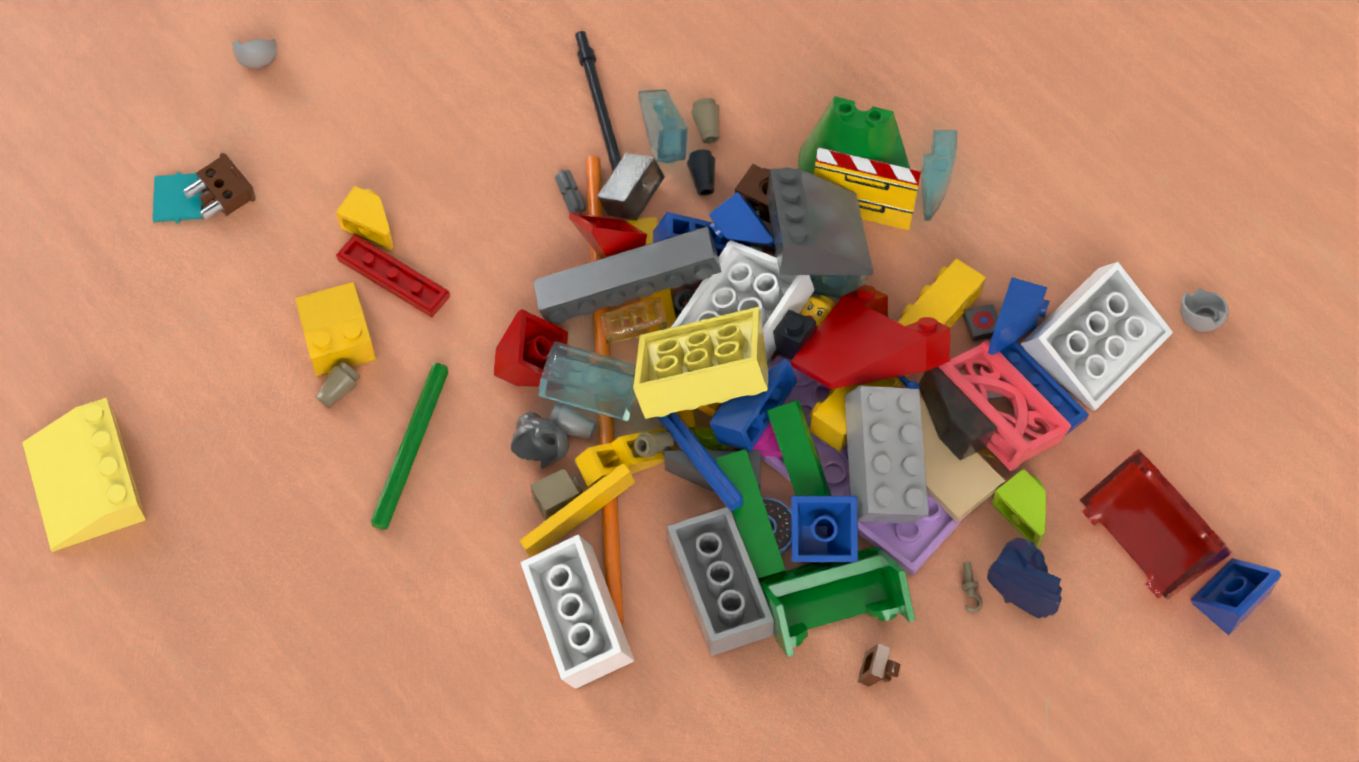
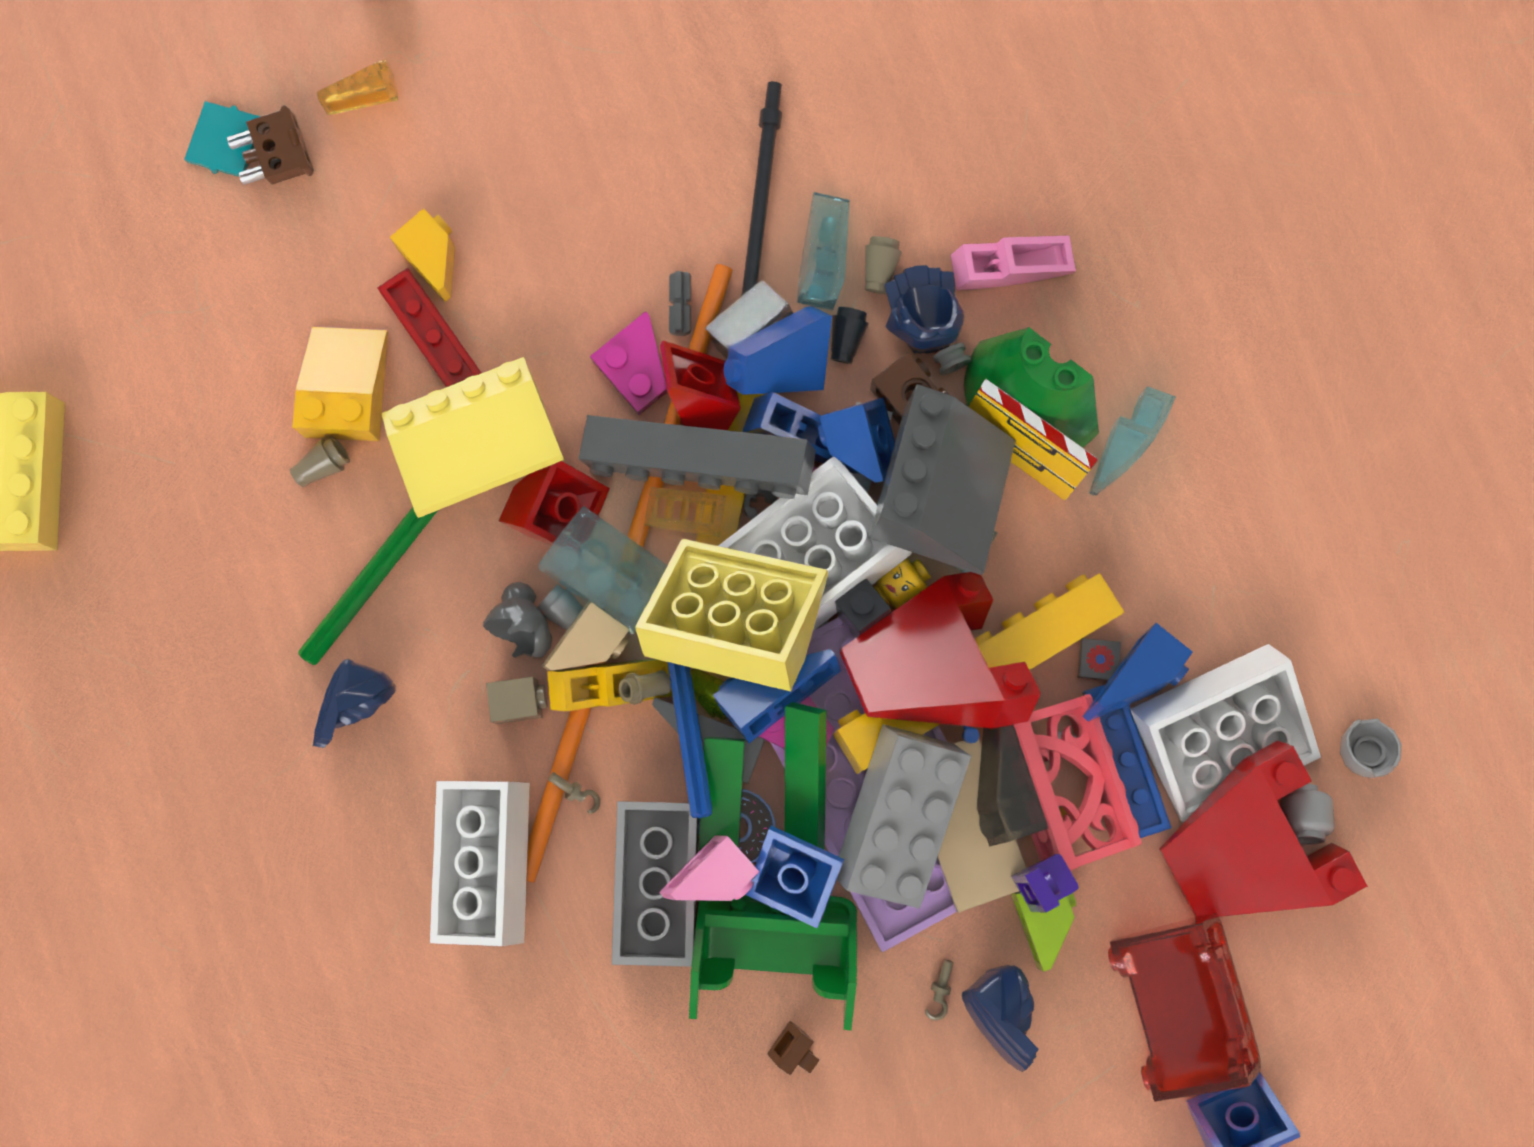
camera: 20 degrees right, 20 degrees up
(273, 130) = (361, 89): none -> clear yellow slope
(428, 531) = (350, 697): none -> dark blue hair
(451, 319) = (471, 437): none -> light yellow slope
(551, 243) = (633, 364): none -> dark pink wing
(577, 510) = (528, 734): yellow tile -> none
(599, 425) = (588, 640): none -> tan slope
(627, 544) = (573, 791): none -> dark tan hand
(664, 189) = (782, 356): none -> blue slope
(752, 137) = (924, 309): none -> dark blue hair
(763, 546) = (713, 874): none -> bright pink slope
(786, 159) = (952, 358): none -> light grey bush
(800, 89) = (1012, 261): none -> bright pink slope
(1010, 466) = (1045, 883): none -> dark purple slope
(1151, 405) = (1242, 853): none -> red wedge
(1181, 369) = (1309, 814): none -> light grey head

